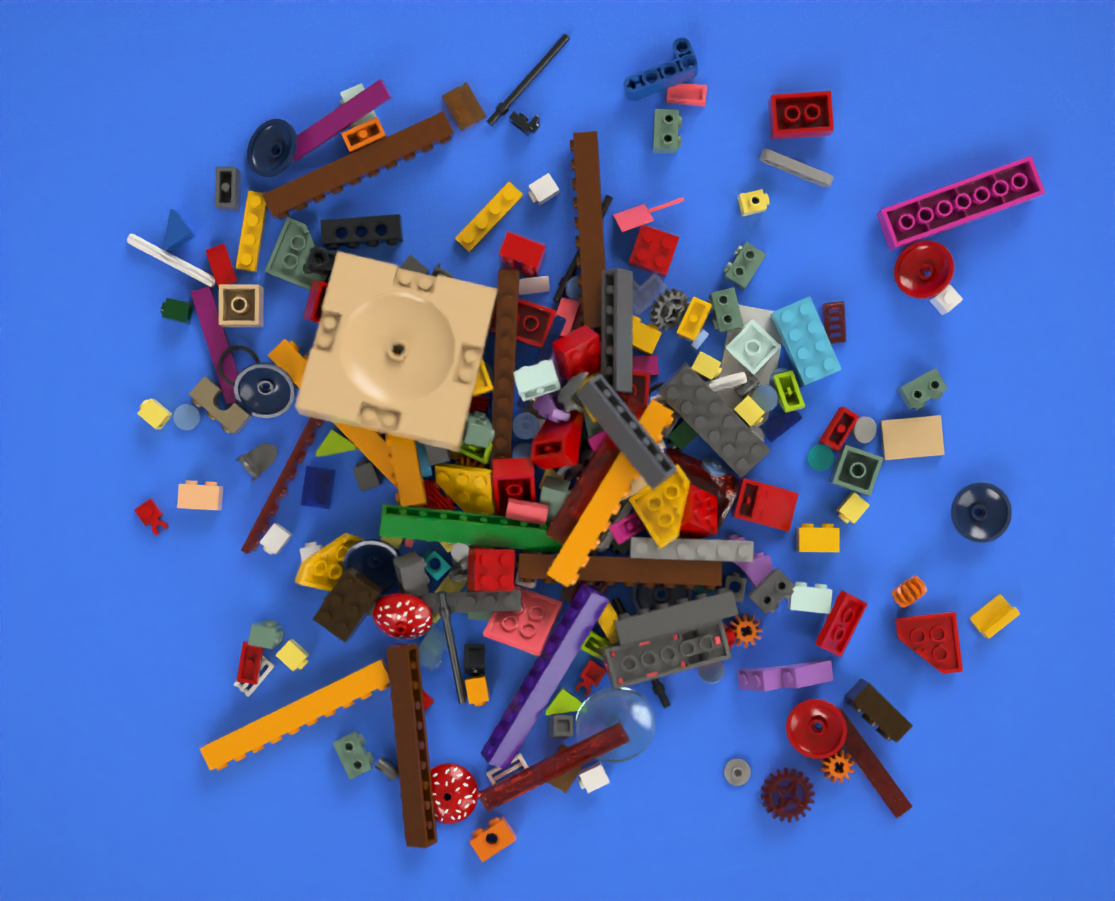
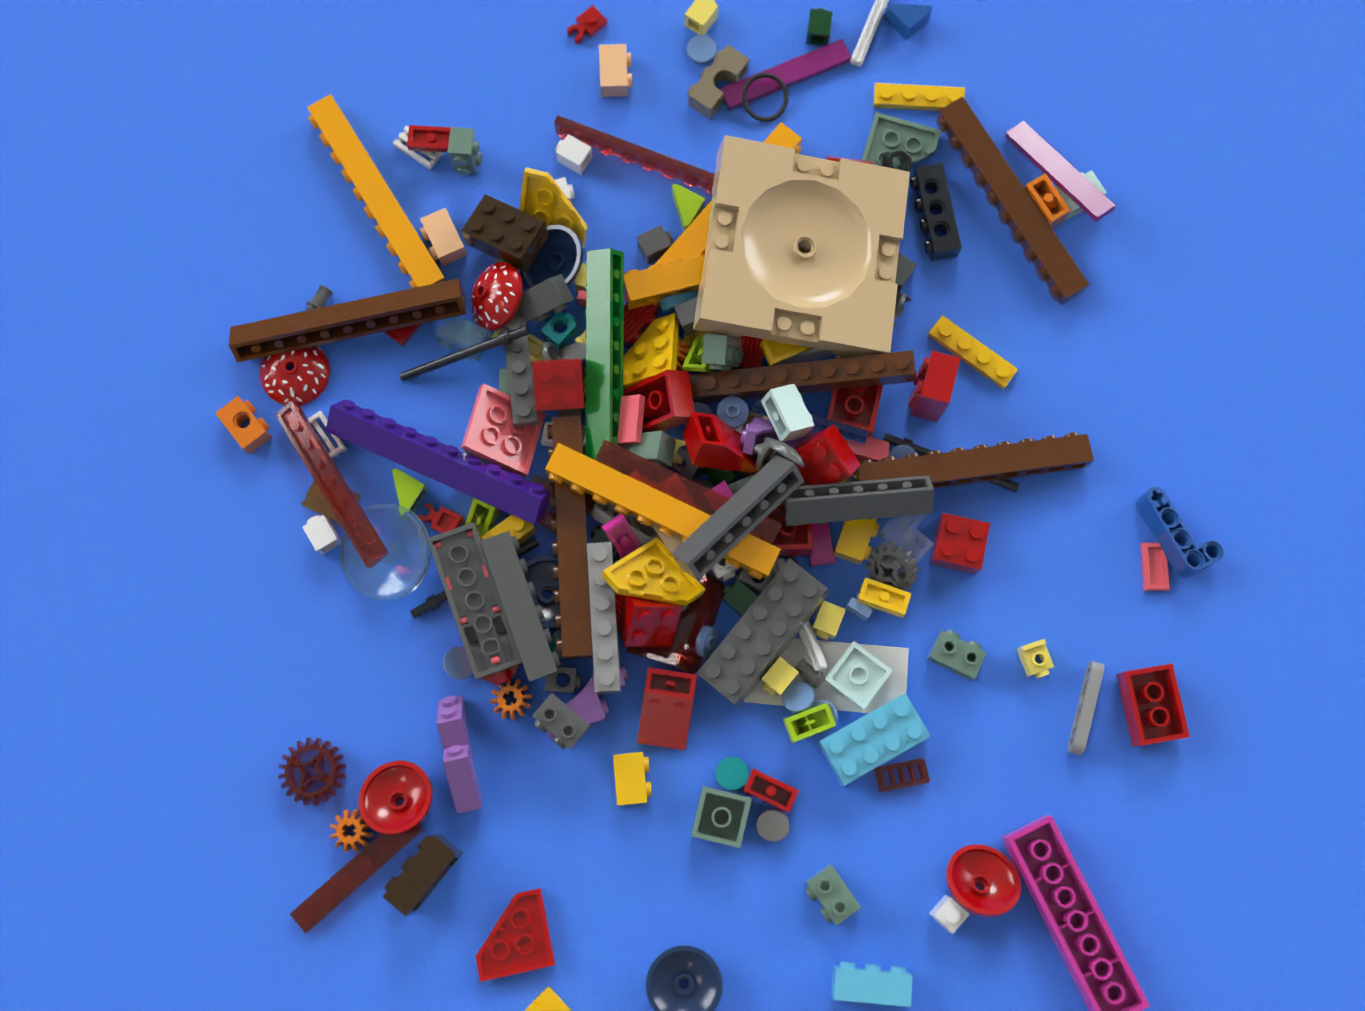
camera: 85 degrees right, 10 degrees down
(221, 265) = (875, 67): red slope -> none
(227, 189) = (963, 63): dark grey brick -> none
(241, 305) = (833, 90): tan brick -> none
(258, 459) = (660, 126): dark grey piece -> none
(260, 399) = (739, 111): dark blue dish -> none
(272, 148) = (1016, 105): dark blue dish -> none
(293, 655) = (443, 185): light yellow brick -> none
(318, 487) = (636, 194): clear blue plate -> none
(341, 658) = (443, 237): none -> light nougat brick
(354, 754) = (334, 260): sand green brick -> none
(464, 106) = (1097, 311): clear orange plate -> none
(474, 659) = (452, 384): black bracket -> none
(477, 690) = (416, 390): light orange brick -> none
(502, 108) = (1102, 354): black bar -> none
(521, 122) = (1087, 380): black bracket -> none
(534, 285) = (899, 406): white sticker -> none
(543, 190) = (1013, 408): white brick -> none
(560, 727) = (379, 487): dark grey brick -> none
(639, 215) = (1000, 523): coral piece -> none
(666, 131) = (1106, 545): sand green brick -> none
(725, 310) = (899, 637): sand green brick -> none
(737, 772) = (337, 708): light grey piece -> none
(779, 423) = (768, 718): clear blue plate -> none
(810, 599) = (556, 775): light aqua brick -> none
(841, 623) = (528, 816): red plate -> none
(852, 508) = (672, 818): light yellow brick -> none
(909, 591) = (575, 900): orange gear -> none
(912, 437) = (769, 889): tan tile -> none
(993, 366) = (872, 984): none -> medium azure brick

